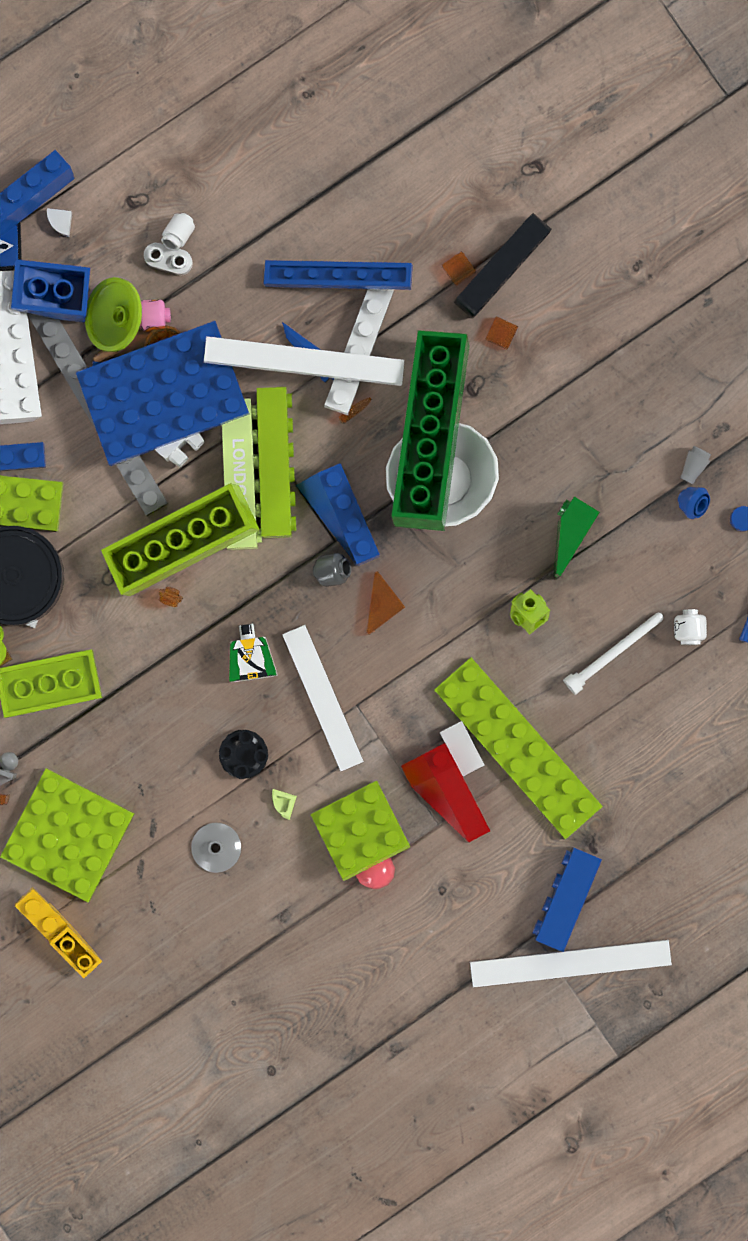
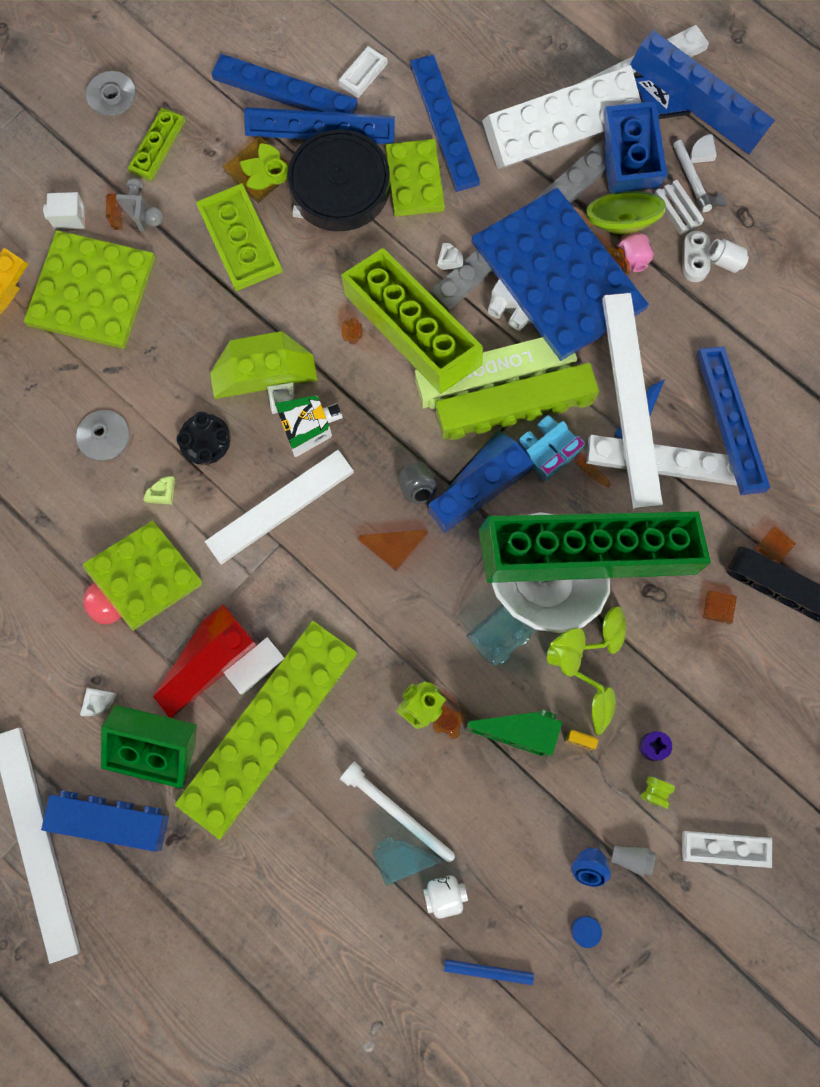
camera: 75 degrees right, 10 degrees down
(115, 235) = (704, 201): none -> white piece
(116, 488) = (449, 257): none -> white tile
(117, 270) = (683, 206): none -> white tile
(182, 688) = (261, 362): none -> lime wedge
(216, 677) = (280, 393): none -> white tile
(321, 433) = (553, 449): none -> medium azure hips
(462, 892) = (96, 702): none -> white tile
(486, 531) = (499, 636): none -> clear light blue bracket
(511, 852) = (147, 746): none -> green slope
(517, 475) = (567, 654): none -> lime plant
(555, 590) = (453, 729): none -> clear orange plate
(588, 482) = (581, 740): none -> yellow tile
(605, 425) = (650, 746): none -> dark purple wheel
(646, 430) = (657, 792): none -> lime wheel
(653, 656) = (401, 859): none -> clear light blue slope
(703, 385) = (727, 849): none -> white tile

